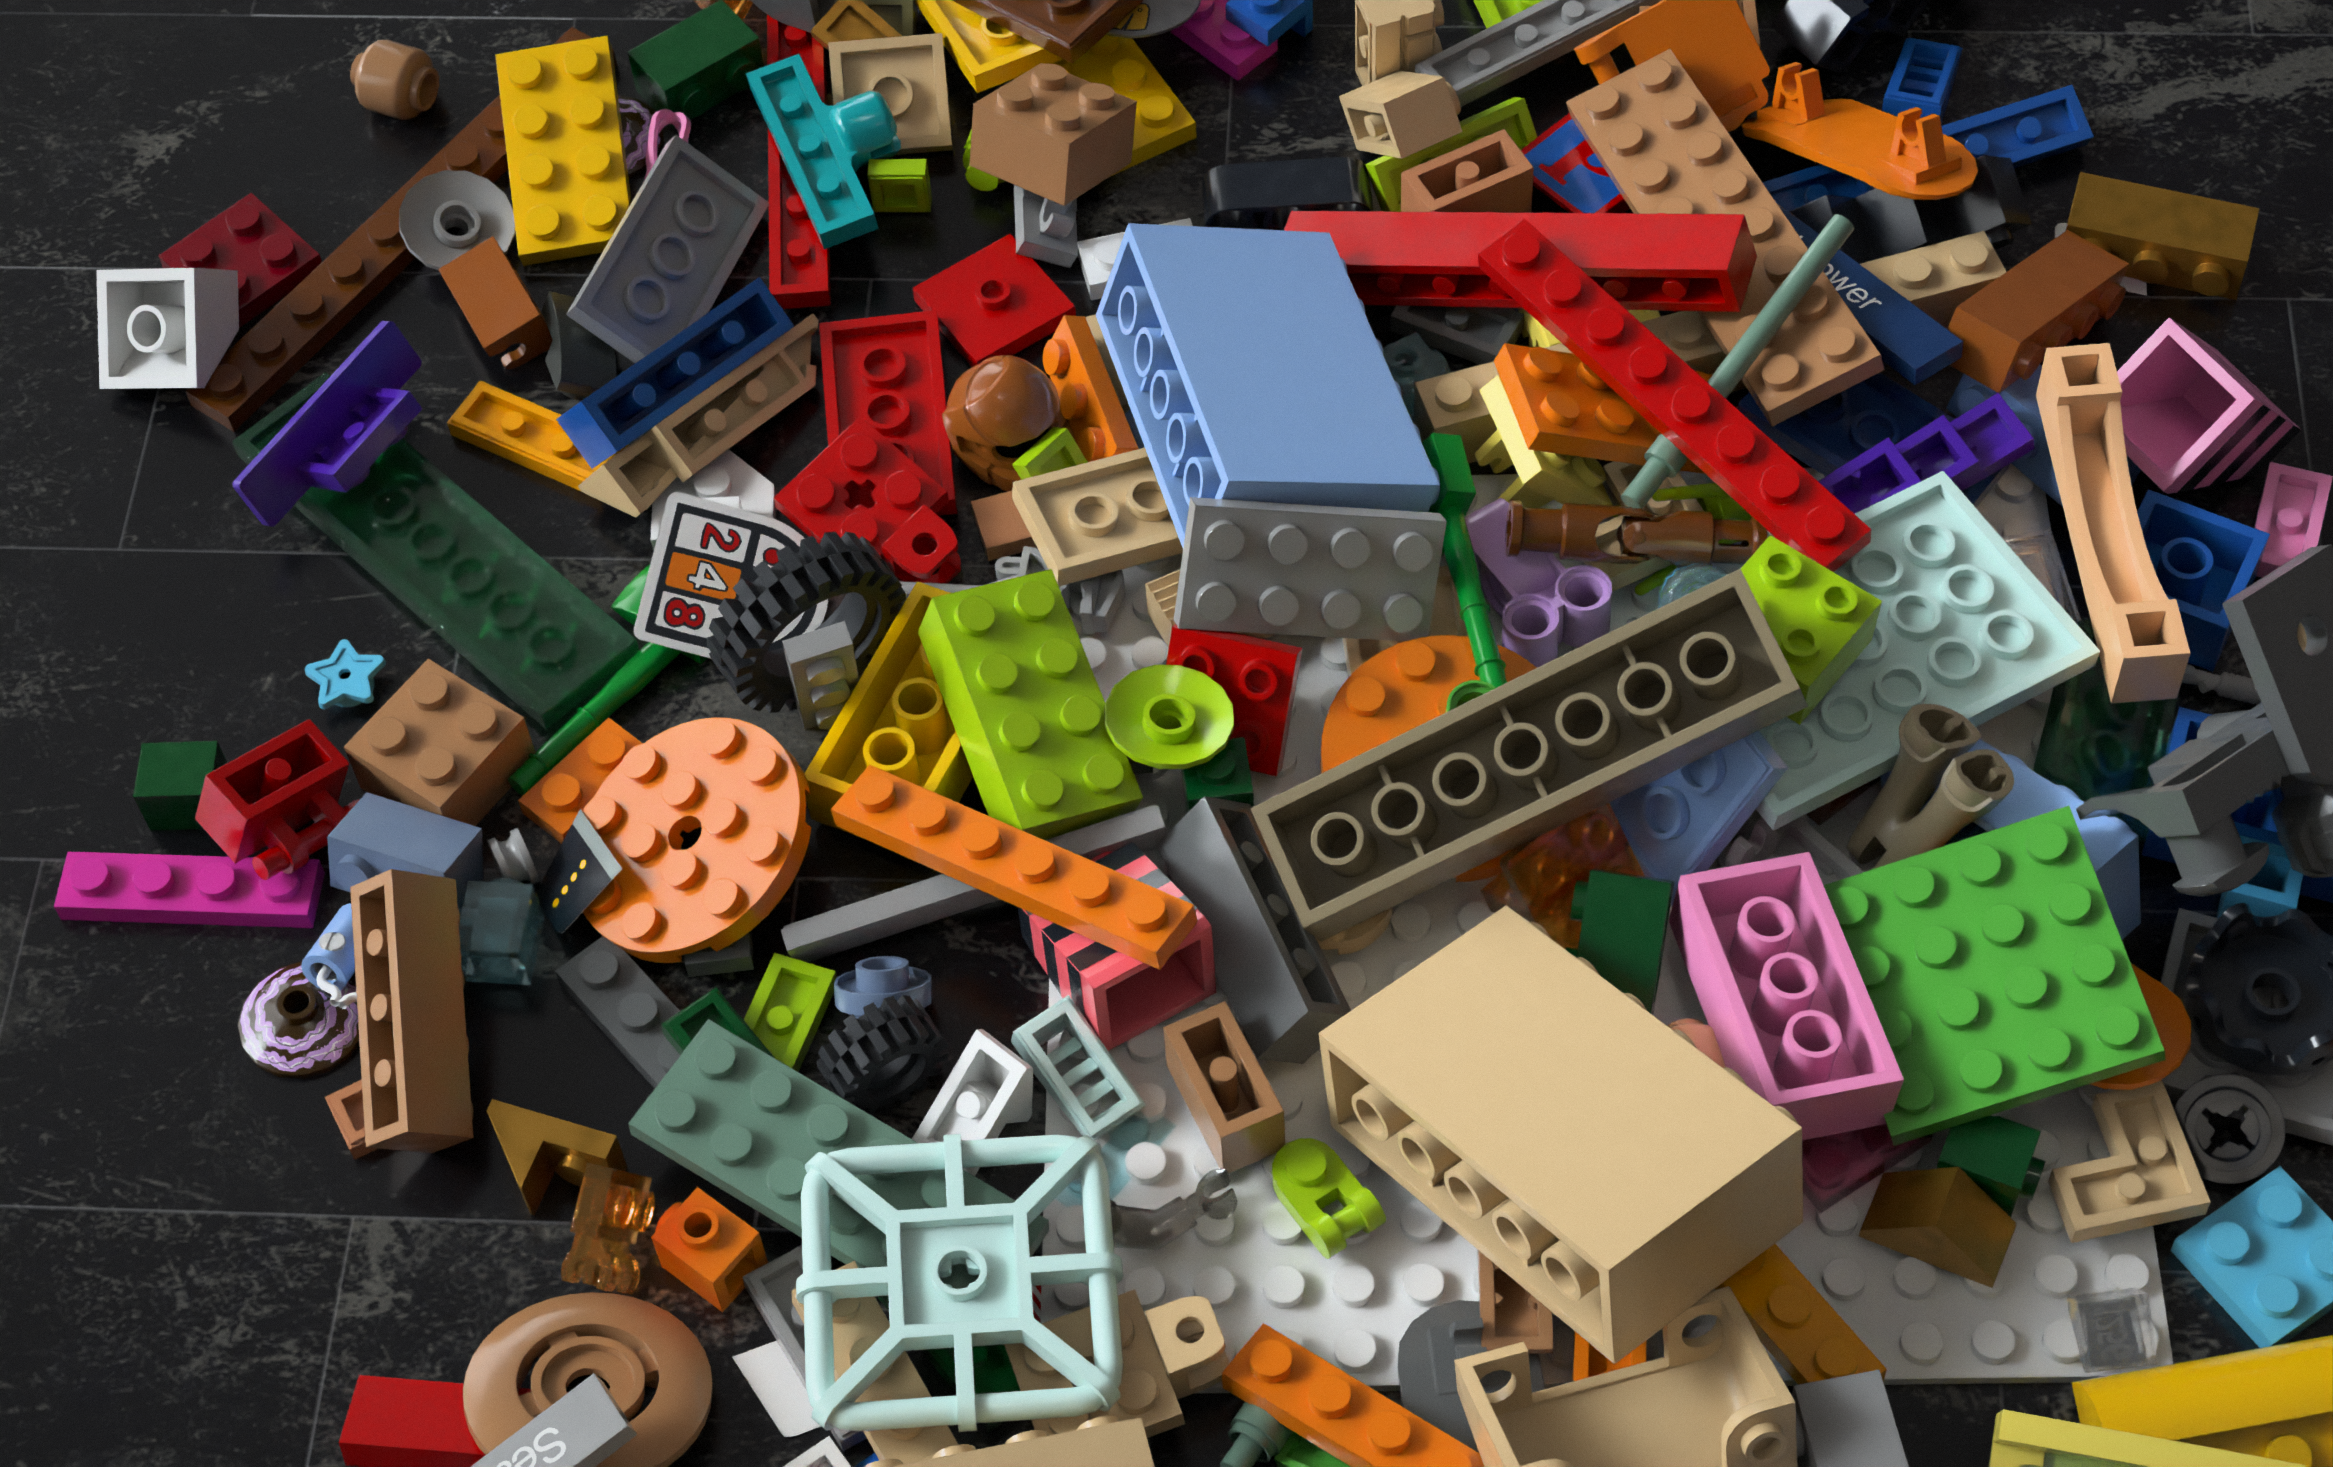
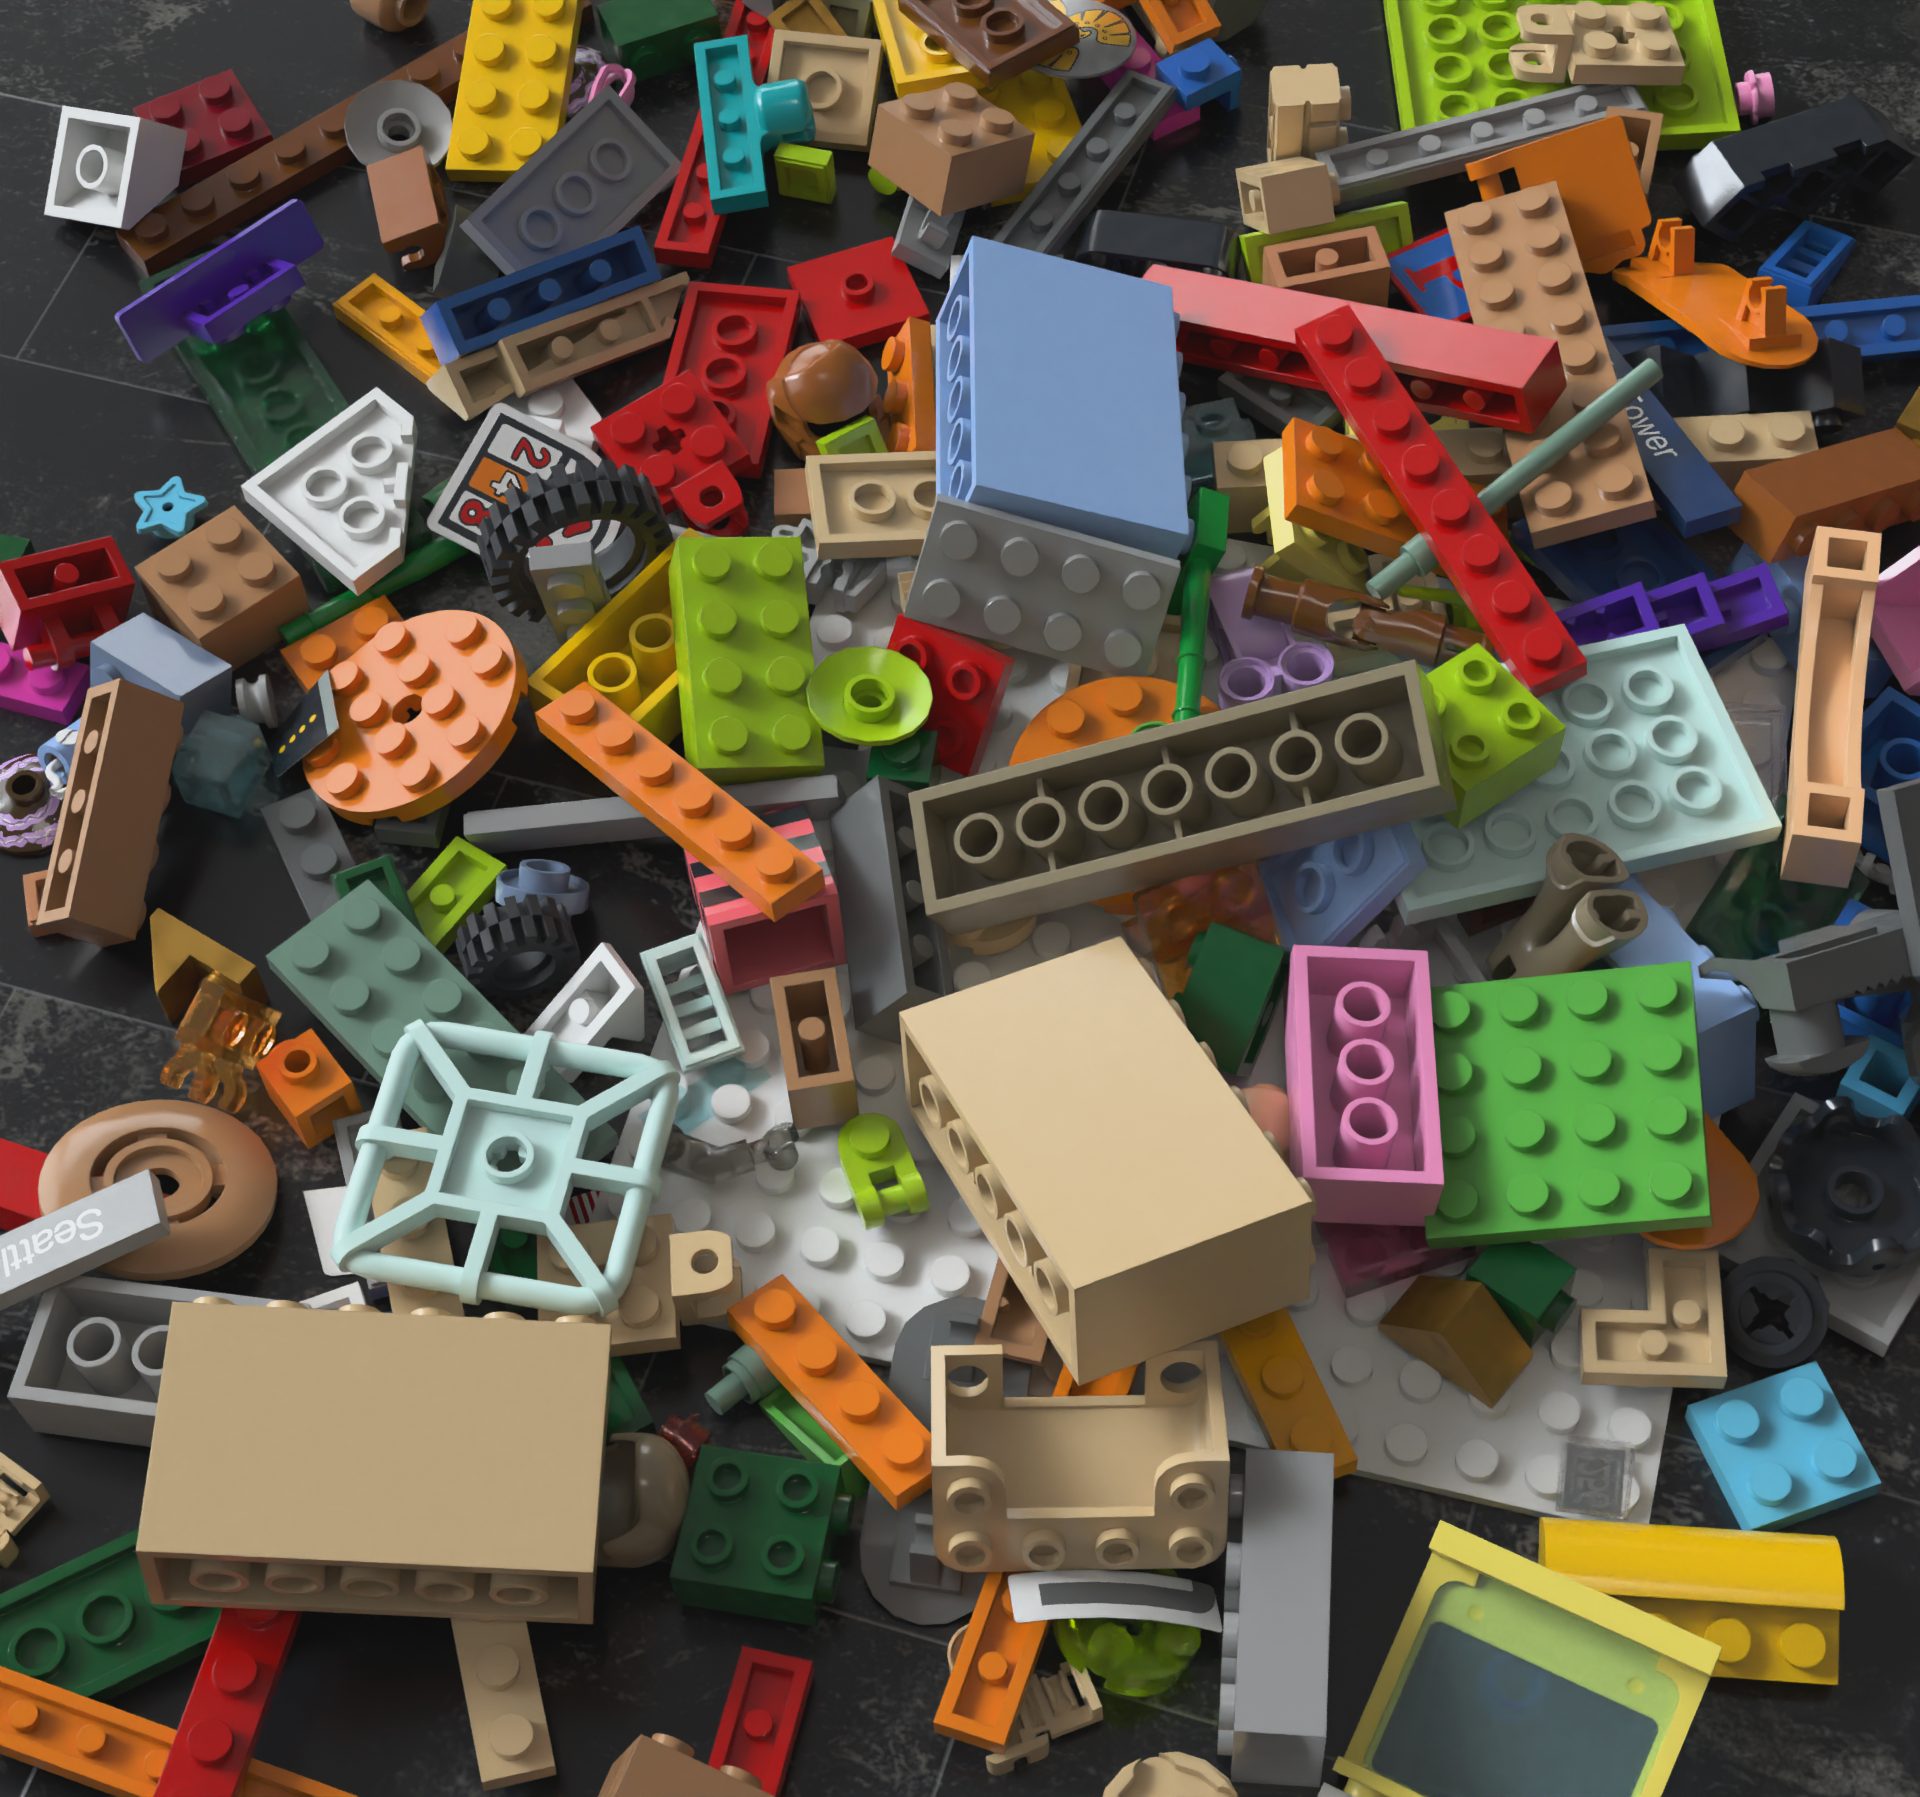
camera: 15 degrees right, 0 degrees up
(538, 618) = (346, 490): none -> white plate
(1186, 128) = (1089, 164): none -> dark grey tile

